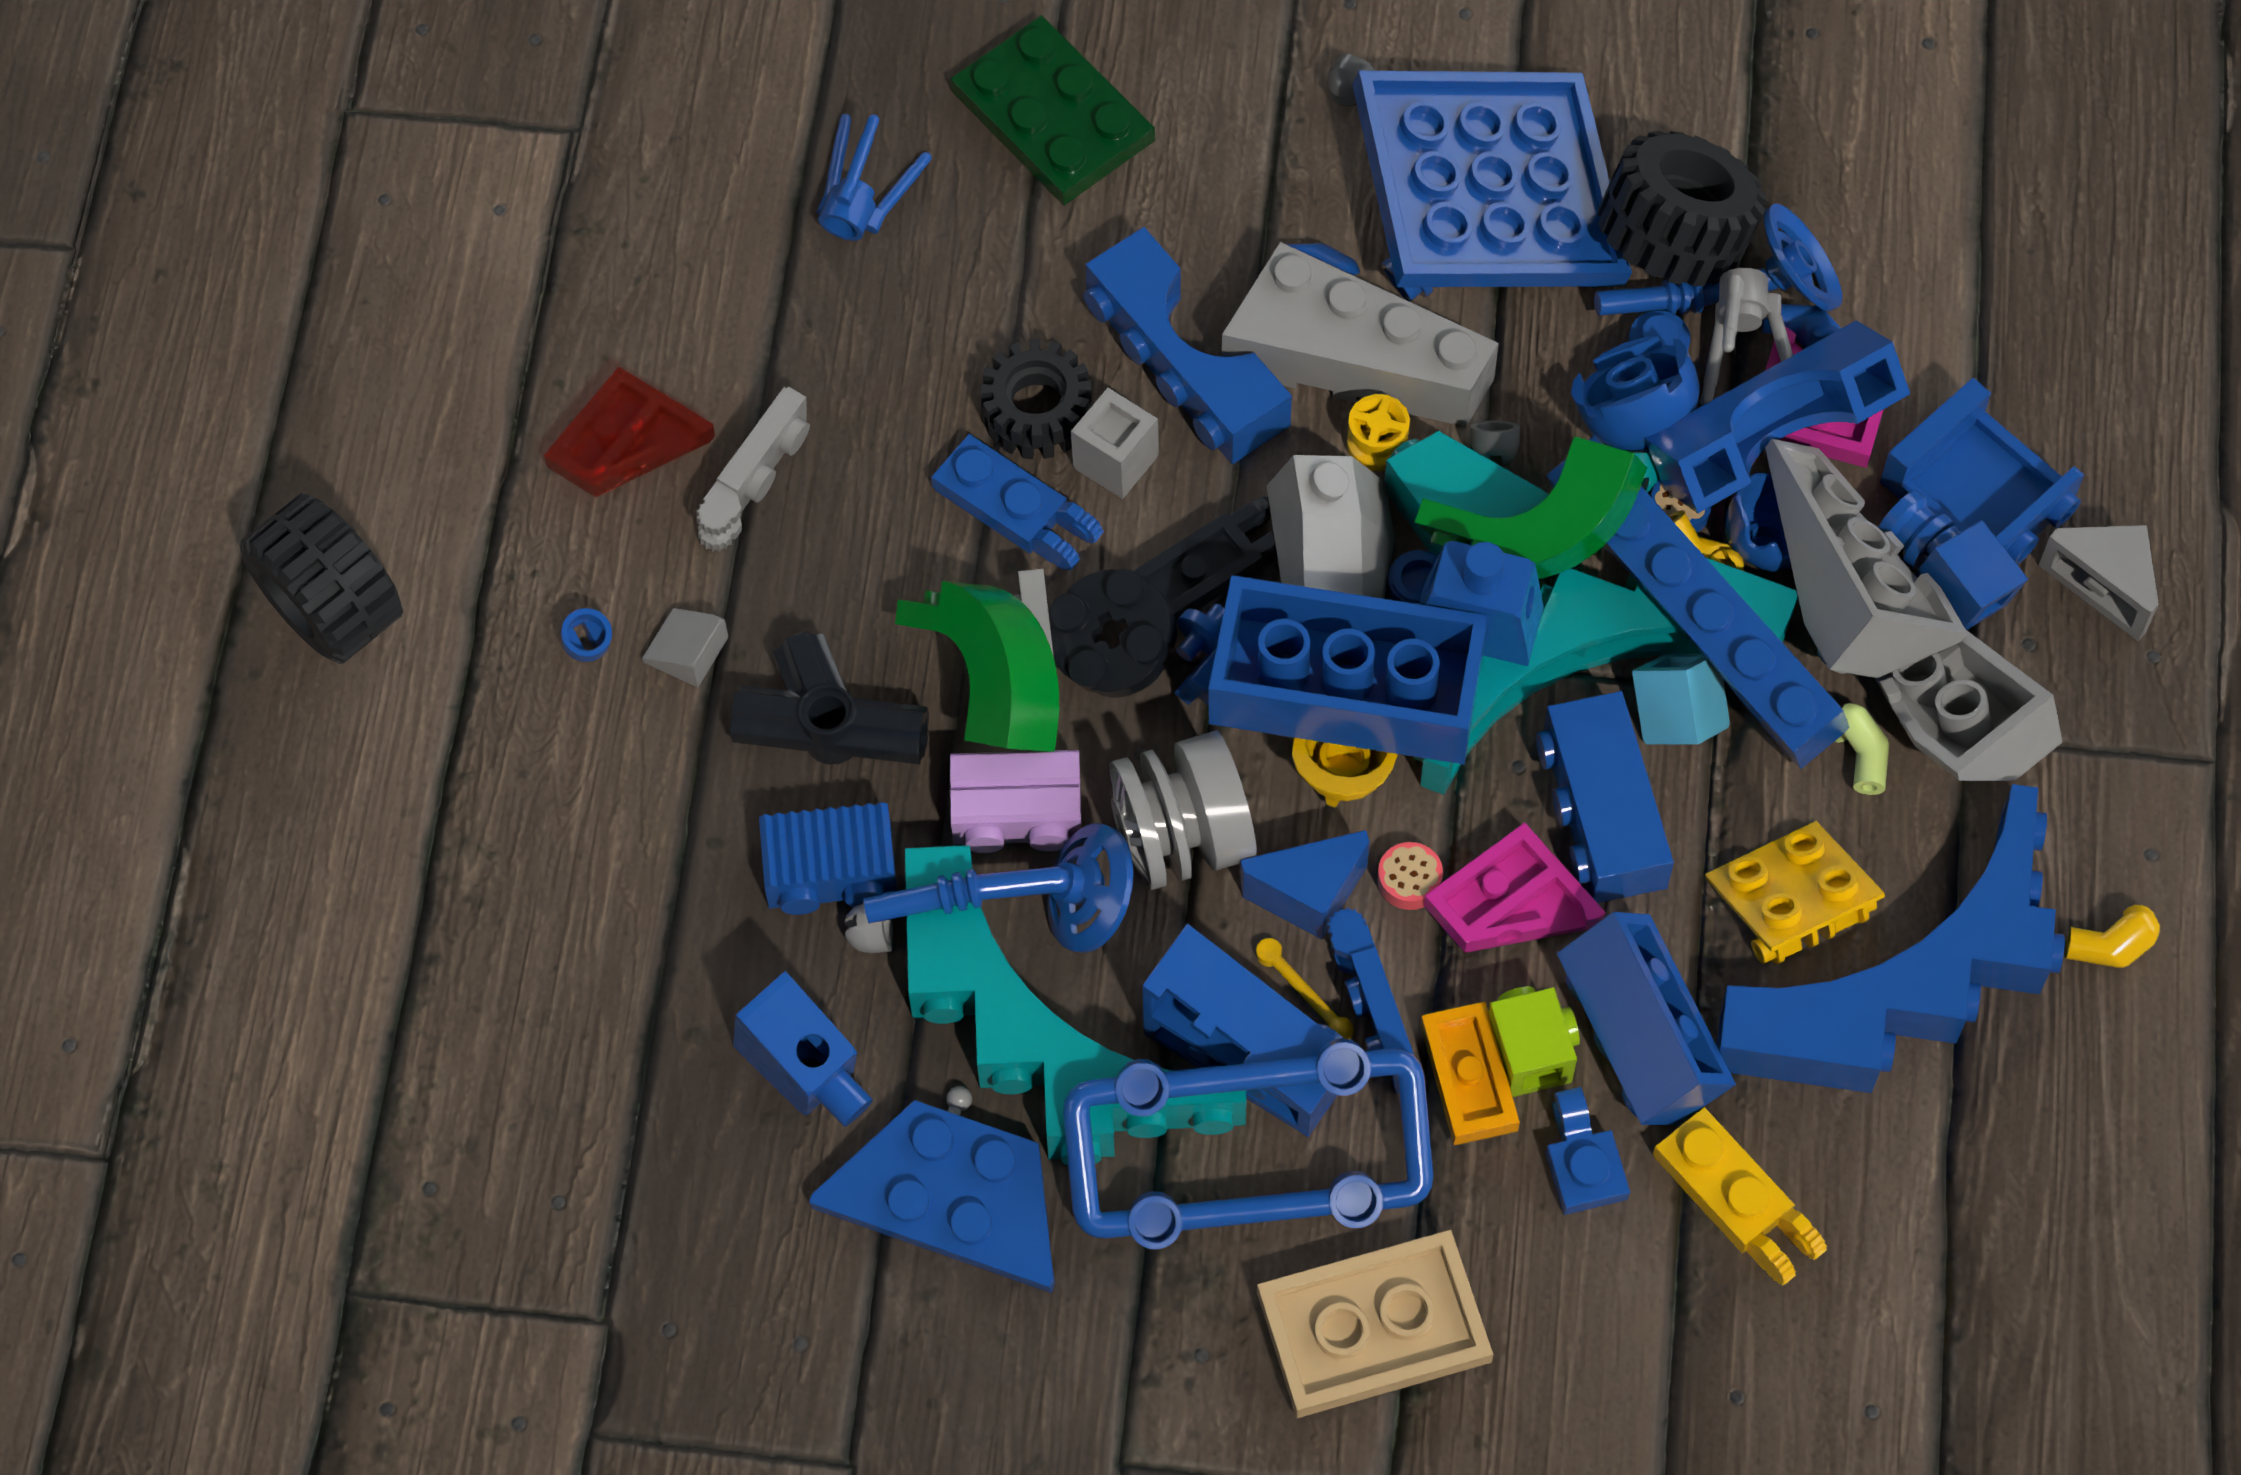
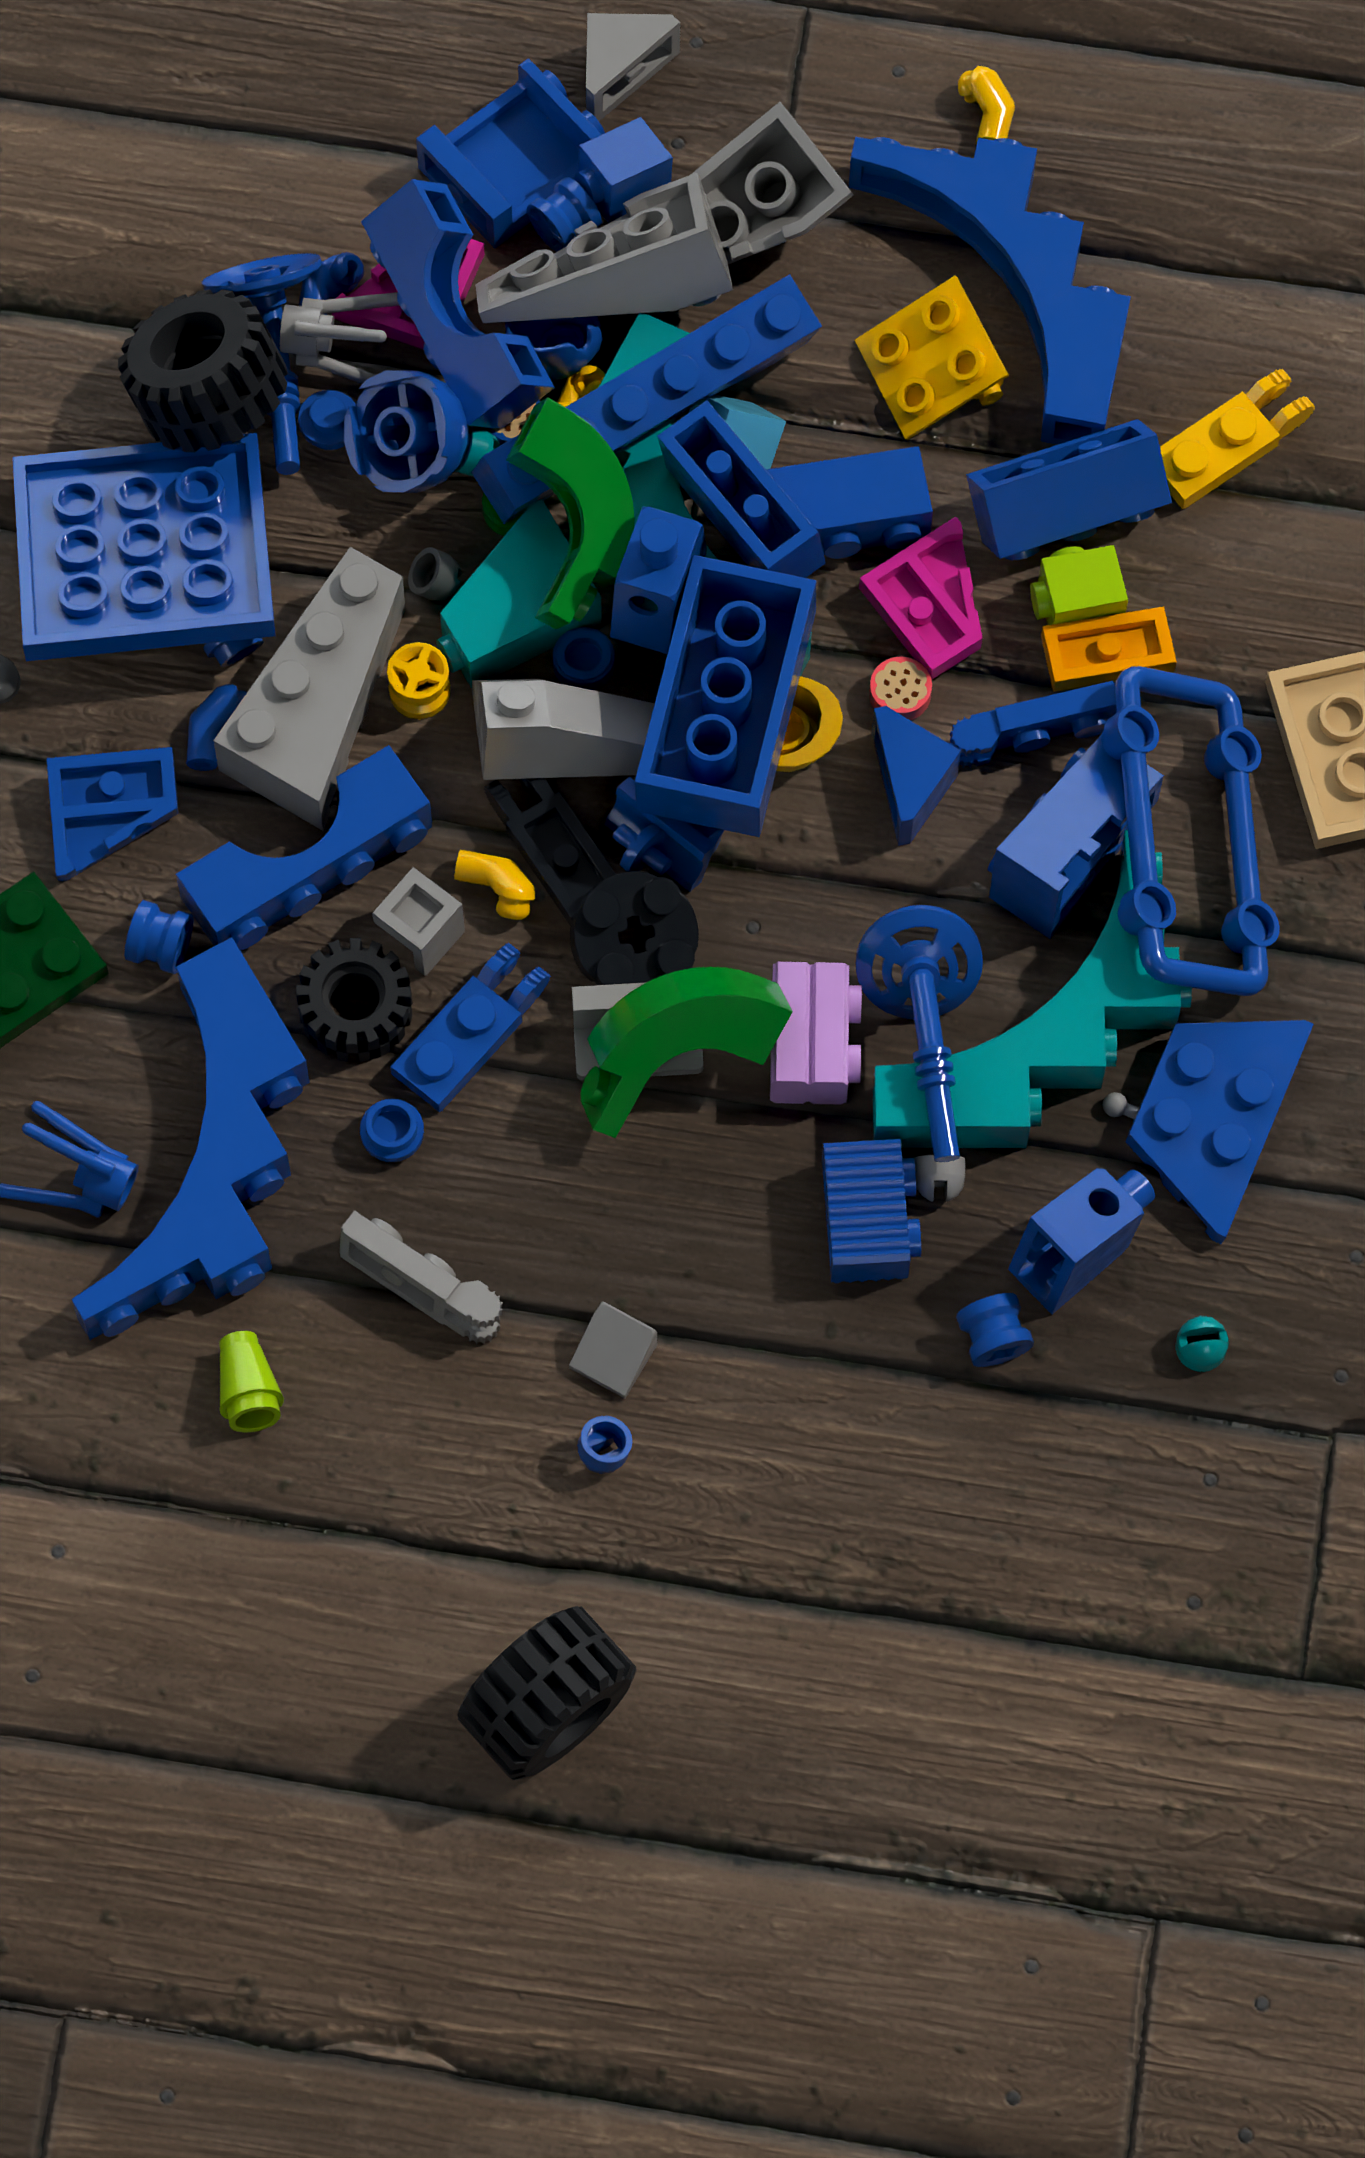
camera: 90 degrees left, 5 degrees up
(624, 435) = (365, 1409): clear red wing -> none
(648, 336) = (247, 1385): none -> lime cone
(703, 980) = (995, 1329): none -> blue wheel
(713, 1183) = (1203, 1354): none -> teal hinge
(816, 696) = (679, 1220): black piece -> none
(876, 310) = (236, 1158): none -> blue arch
(907, 441) = (392, 1130): none -> blue plate
(1090, 228) = (158, 936): none -> blue wheel
(1170, 522) = (502, 876): none -> yellow arm
(1183, 810) = (844, 866): light grey wheel -> none
(1227, 180) = (107, 803): none -> blue wing
(1270, 954) = (973, 818): yellow hinge -> none
(1571, 673) = (739, 494): none -> blue brick
(1584, 1164) = (1195, 560): blue plate -> none
(1870, 748) = (810, 283): yellowish green arm -> none

